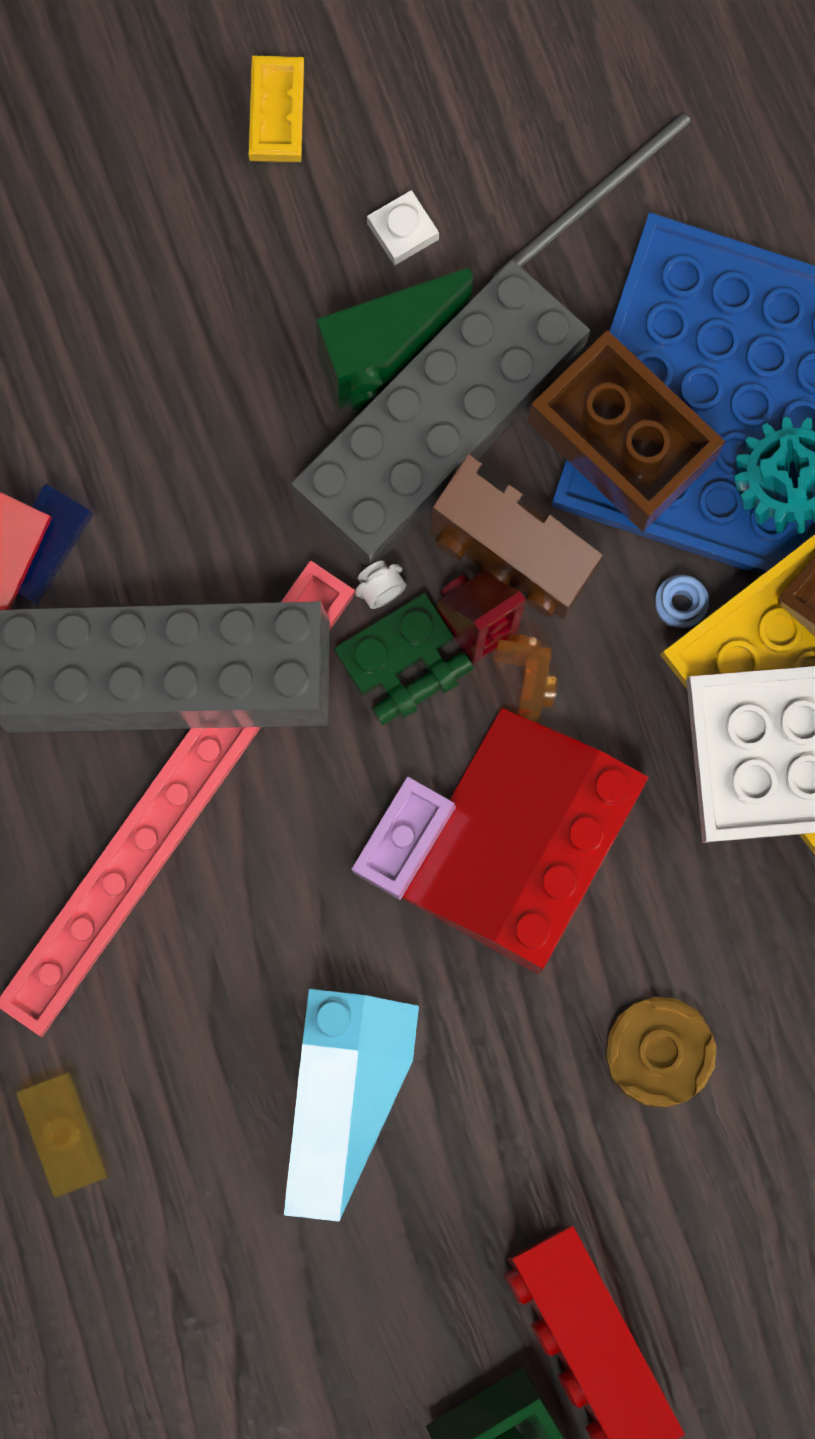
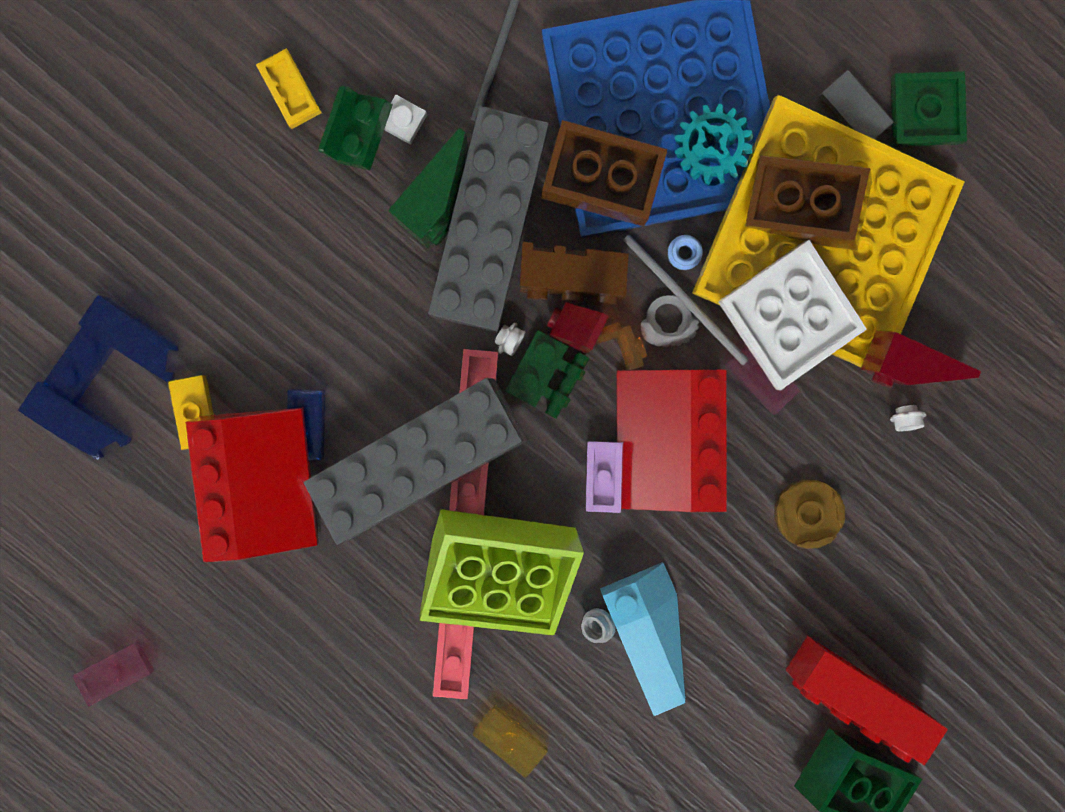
camera: 25 degrees left, 10 degrees up
(185, 884) = (499, 573): none -> lime slope
(267, 1037) = (591, 628): none -> light grey plate
(332, 203) = (355, 128): none -> dark green bracket
(579, 685) = (652, 331): none -> light grey piece
(648, 664) = (687, 301): none -> light grey axle
(681, 815) = (758, 383): none -> clear pink plate

